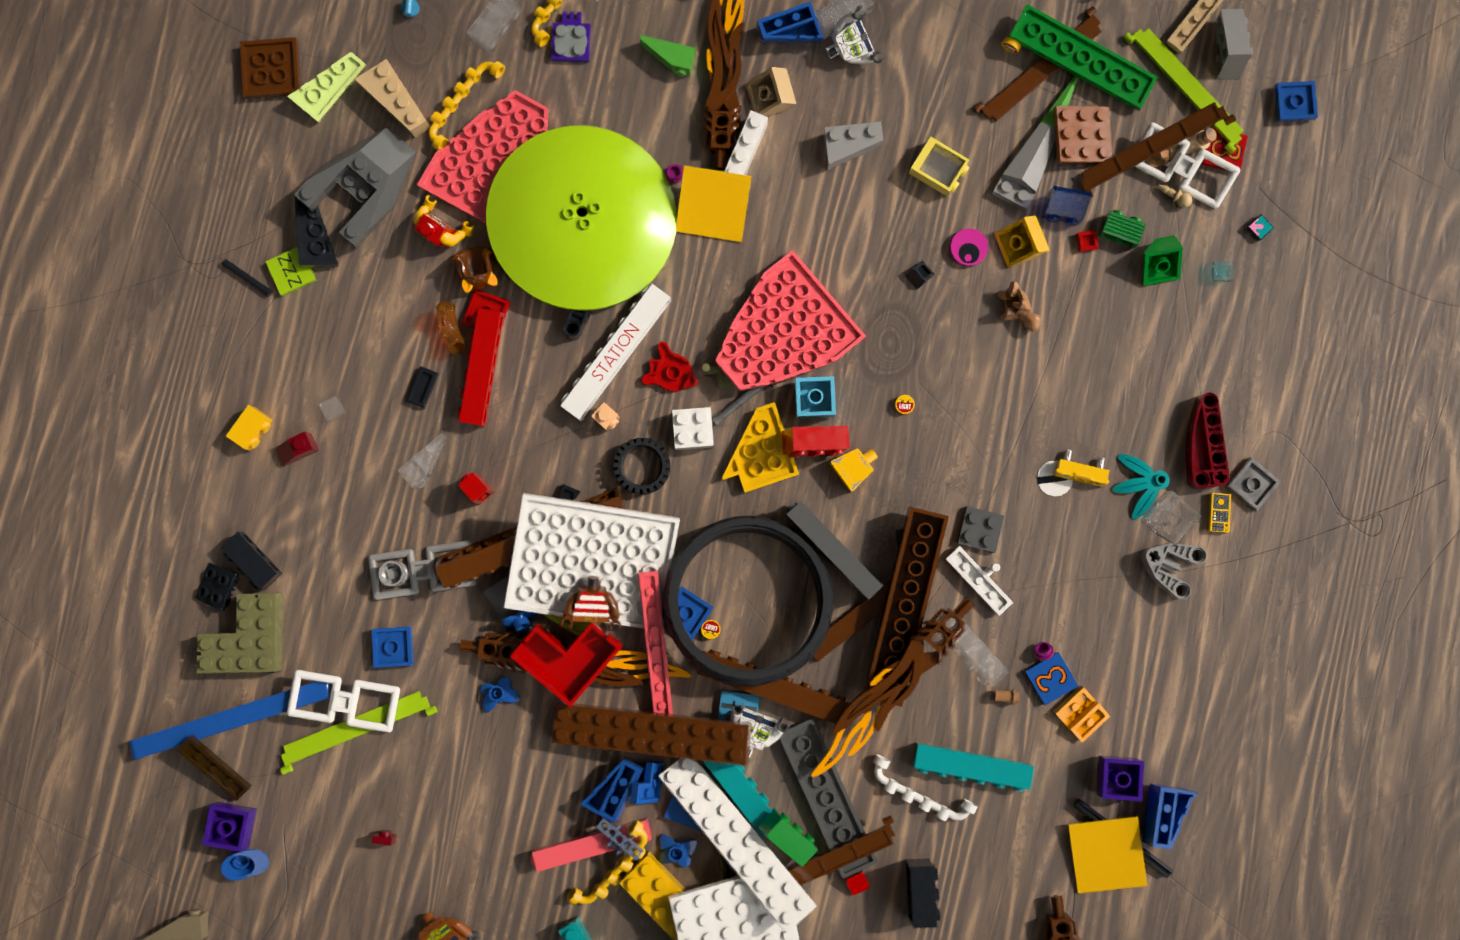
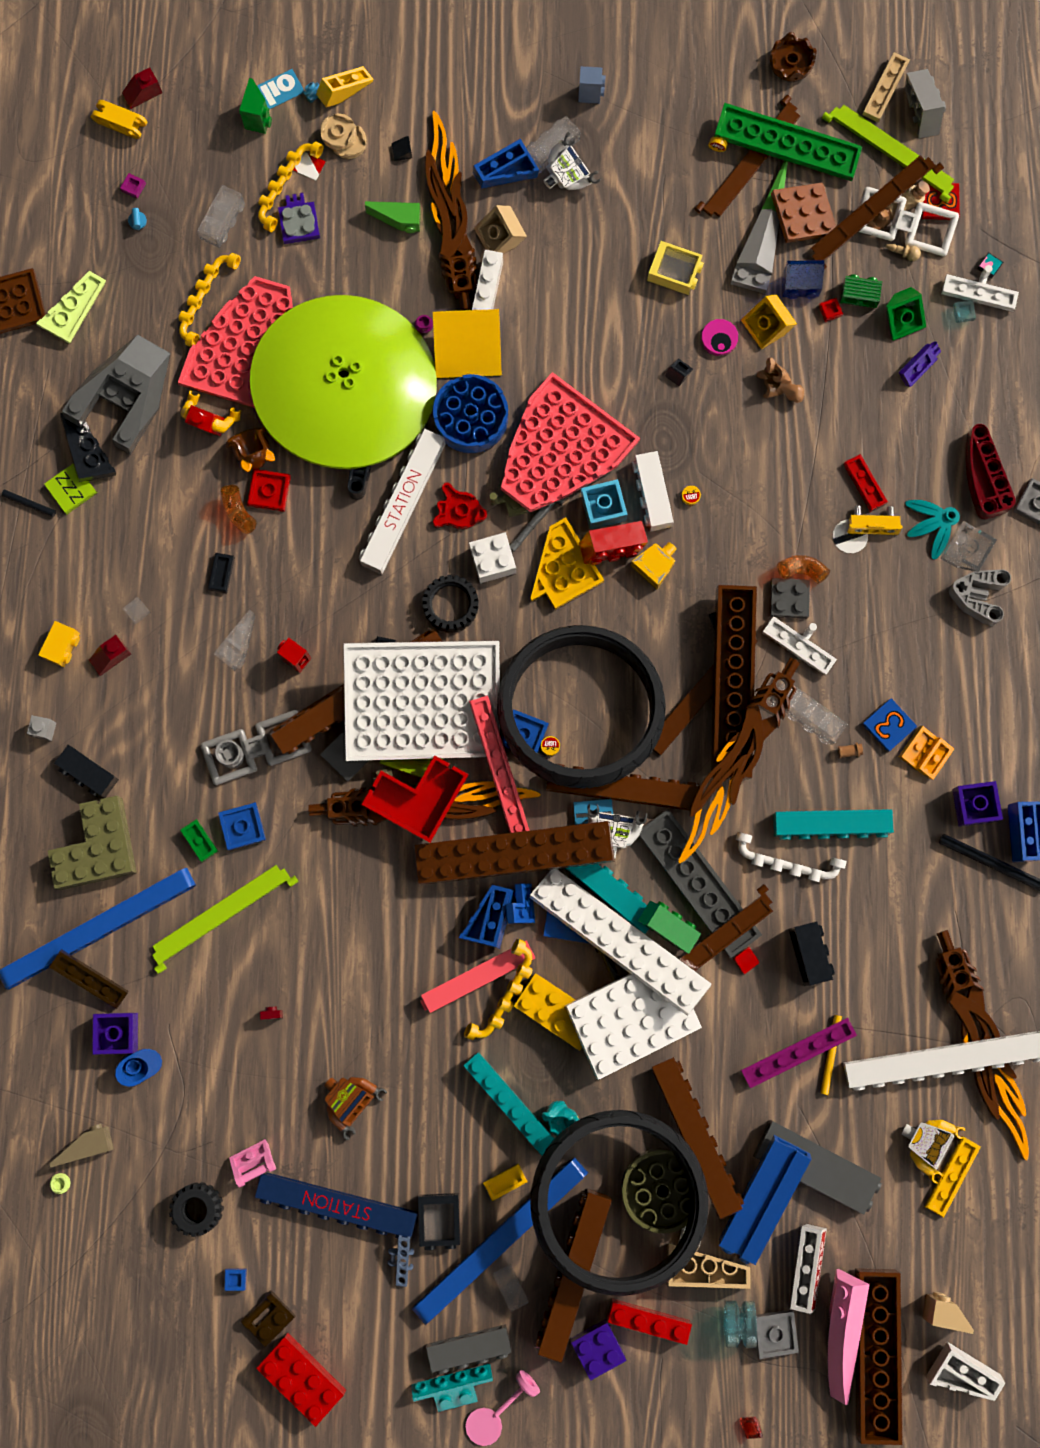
camera: 15 degrees left, 5 degrees down
(216, 508) = (41, 728): none -> light grey brick
(216, 587) = (56, 804): black hinge -> none
(343, 701) = (204, 887): white bar -> none
(348, 652) = (199, 840): none -> green plate
(388, 90) = (135, 302): tan wedge -> none
(481, 367) = (275, 540): red brick -> none
(498, 693) = (355, 850): blue animal -> none
(519, 622) = (362, 774): blue animal -> none
(591, 604) = (430, 739): torso -> none
(606, 417) = (406, 563): light nougat brick -> none
(613, 836) = (498, 960): sand blue piece -> none
(677, 851) = (562, 967): blue animal -> none
(705, 296) = (476, 431): none -> blue brick
(833, 550) = (653, 643): dark grey brick -> none
(850, 141) = (585, 261): light grey wedge -> none
(867, 393) = (653, 491): none -> white brick
(1000, 499) = (803, 565): none -> clear orange cylinder
(1043, 651) = (876, 699): magenta plate -> none
(1082, 427) = (865, 482): none -> red tile
(1107, 854) = (982, 881): yellow piece -> none
(1165, 316) = (919, 364): none -> dark purple hinge
(1219, 512) = (1014, 536): tile -> none
(1243, 253) = (980, 291): none -> white plate
(1296, 101) = (996, 143): blue plate -> none

